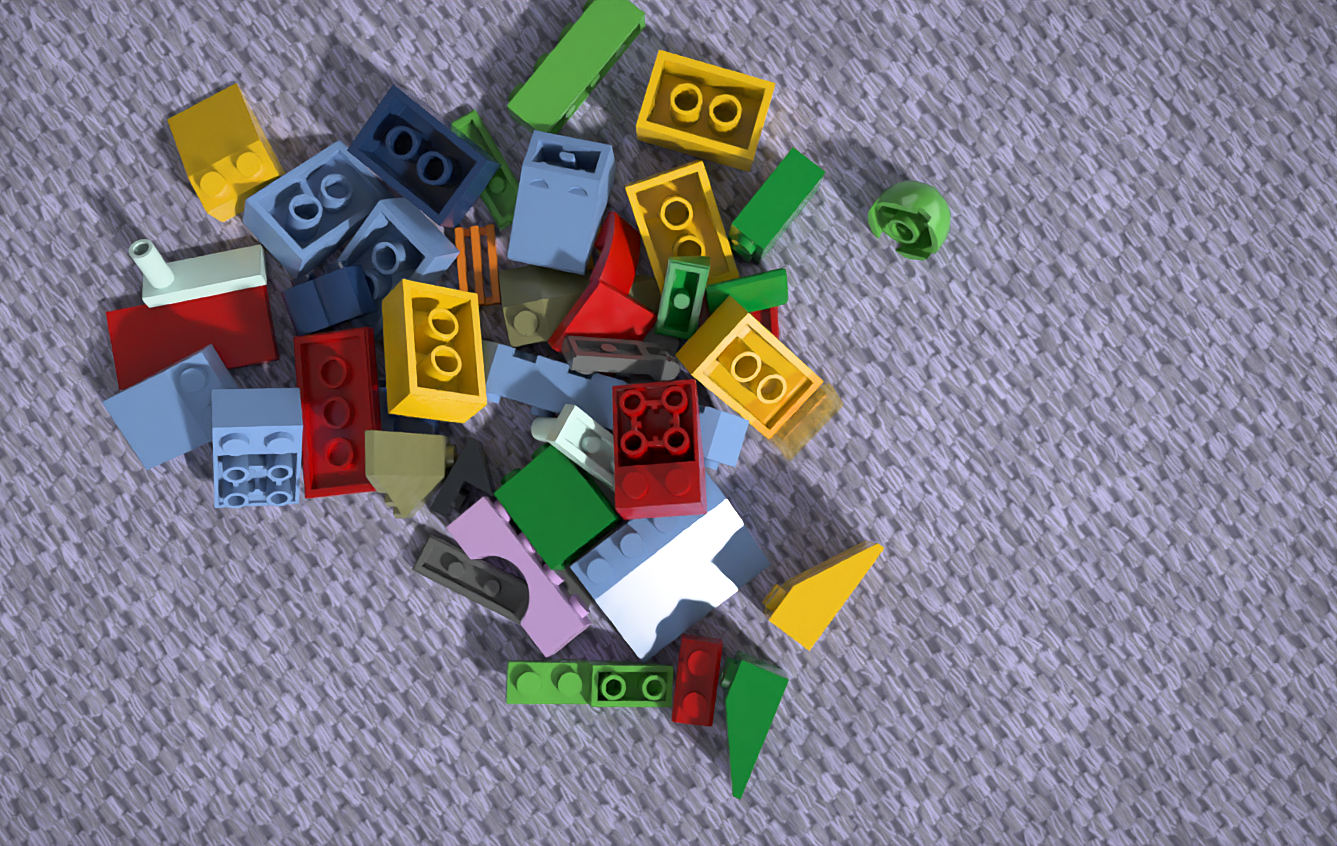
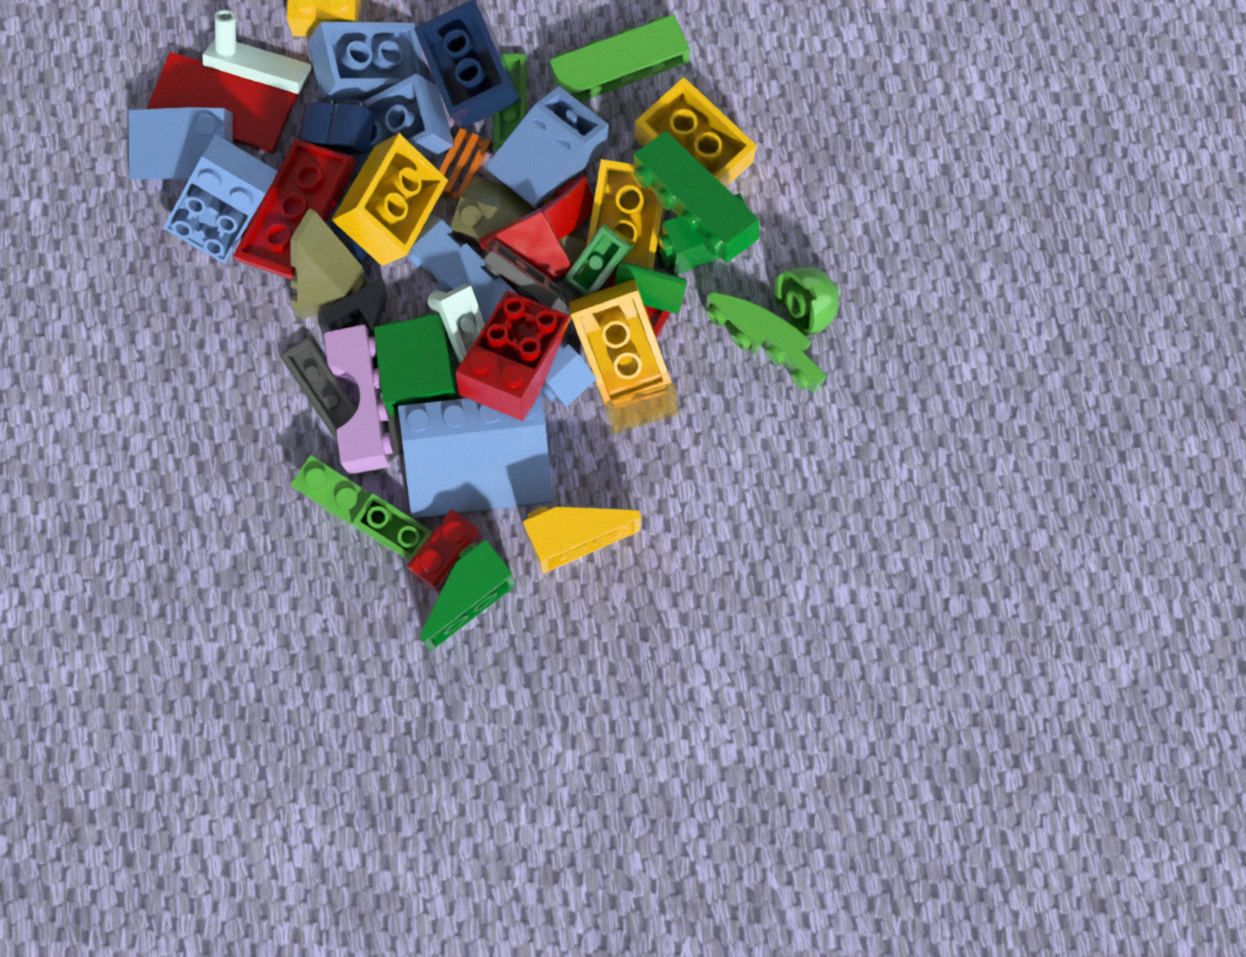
camera: 25 degrees right, 10 degrees down
(754, 180) = (696, 197): none -> green brick
(875, 274) = (759, 327): none -> bright green slope

